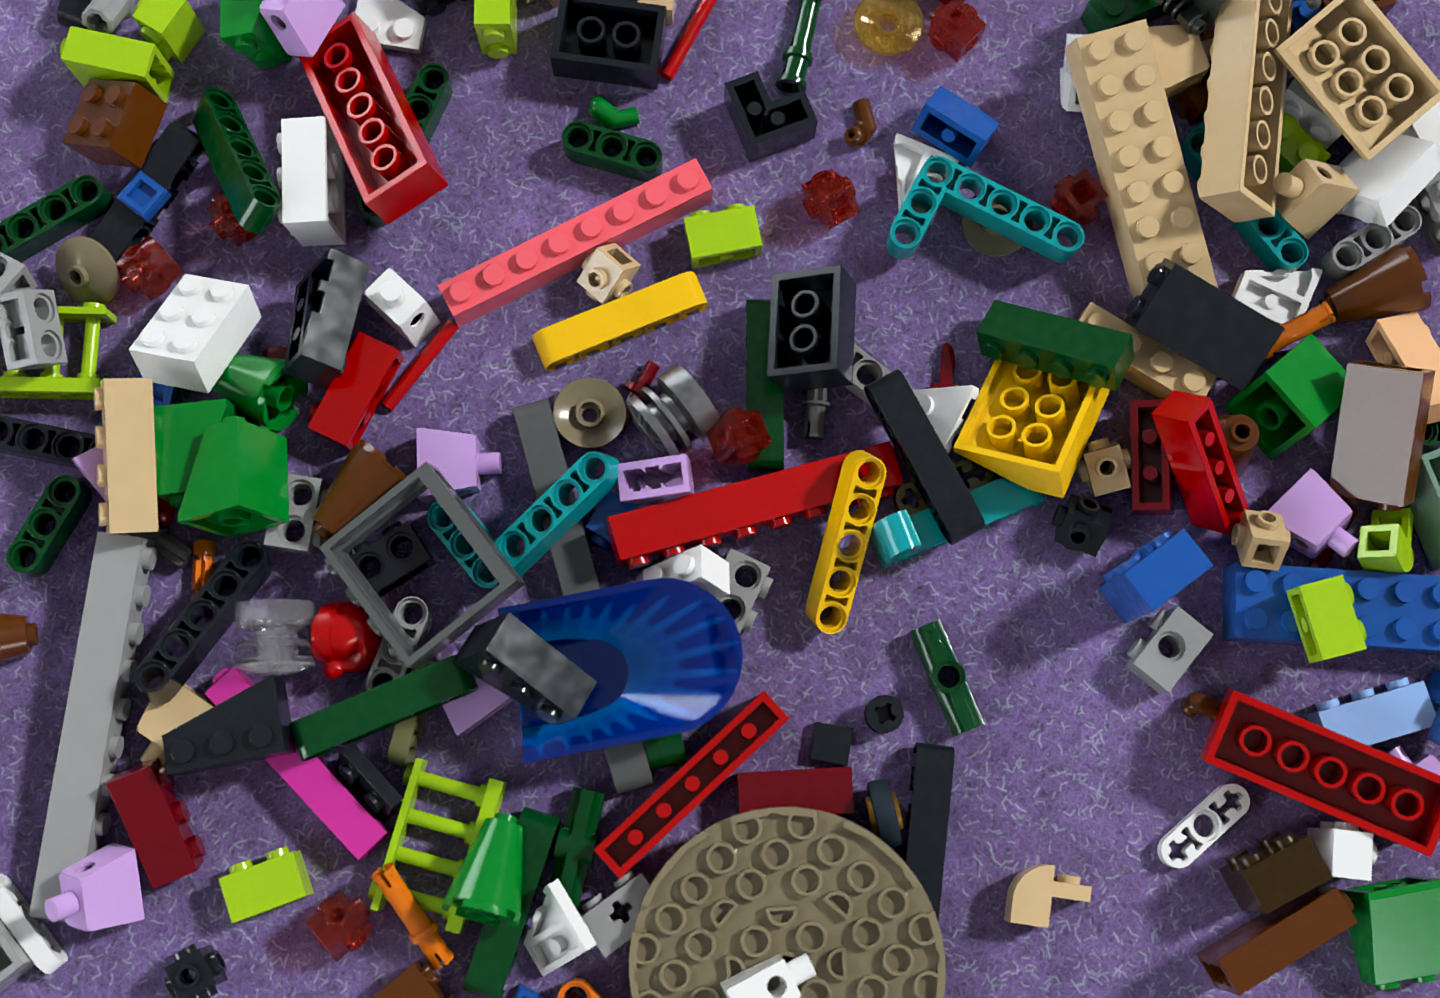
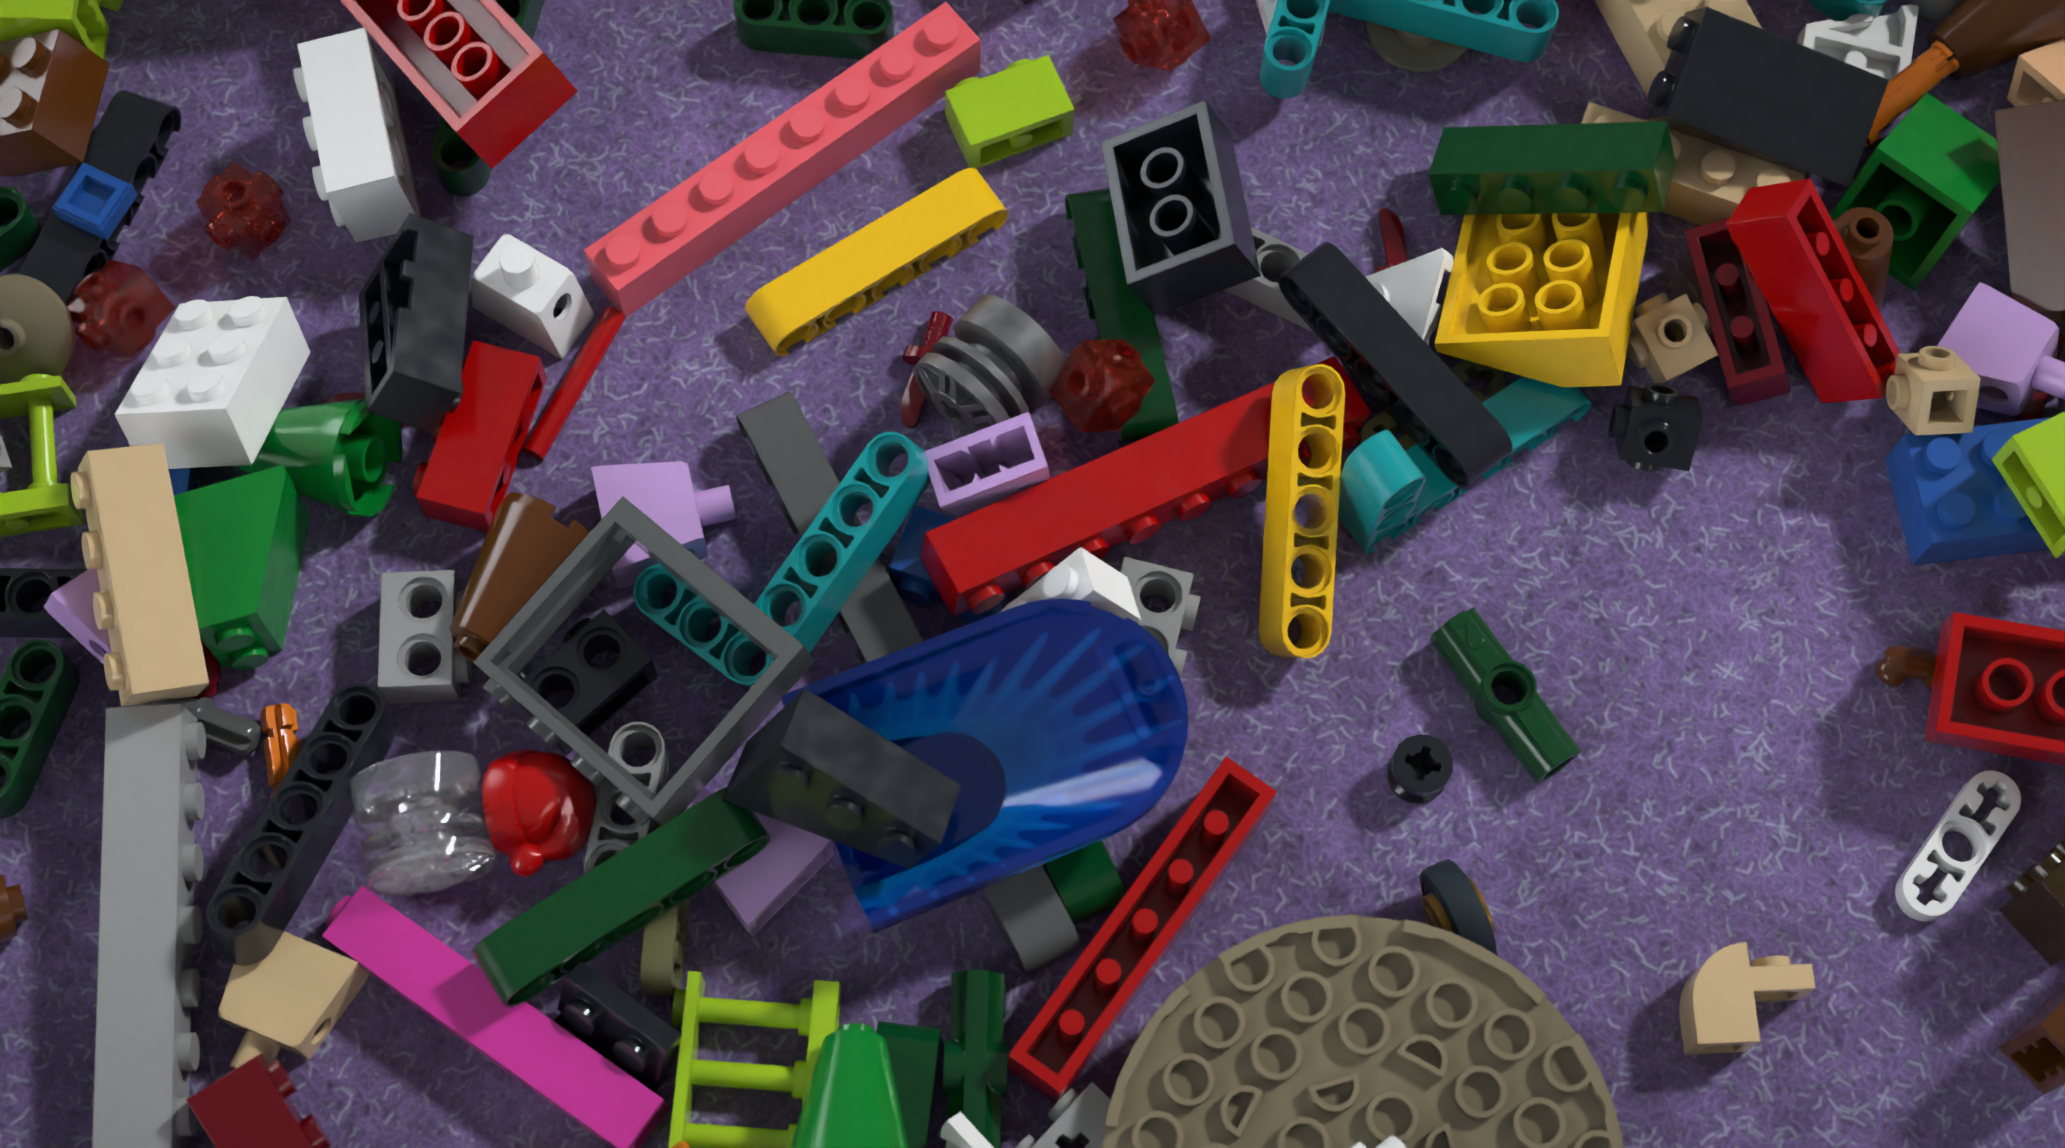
camera: 10 degrees left, 10 degrees down
(233, 732) = (382, 980): black wedge -> none
(236, 161) = (234, 123): dark green beam -> none
(237, 480) = (321, 590): green slope -> none
(591, 395) = (851, 379): dark tan dish -> none
(608, 273) = (844, 192): tan brick -> none
(807, 788) = (1356, 887): dark red brick -> none
(814, 413) = (1207, 340): dark grey axle -> none
(831, 743) = (1347, 832): black tile -> none
(929, 817) = (1528, 897): black beam -> none
(1153, 574) = (1785, 469): blue brick -> none
(1187, 641) = (1856, 566): light grey brick -> none

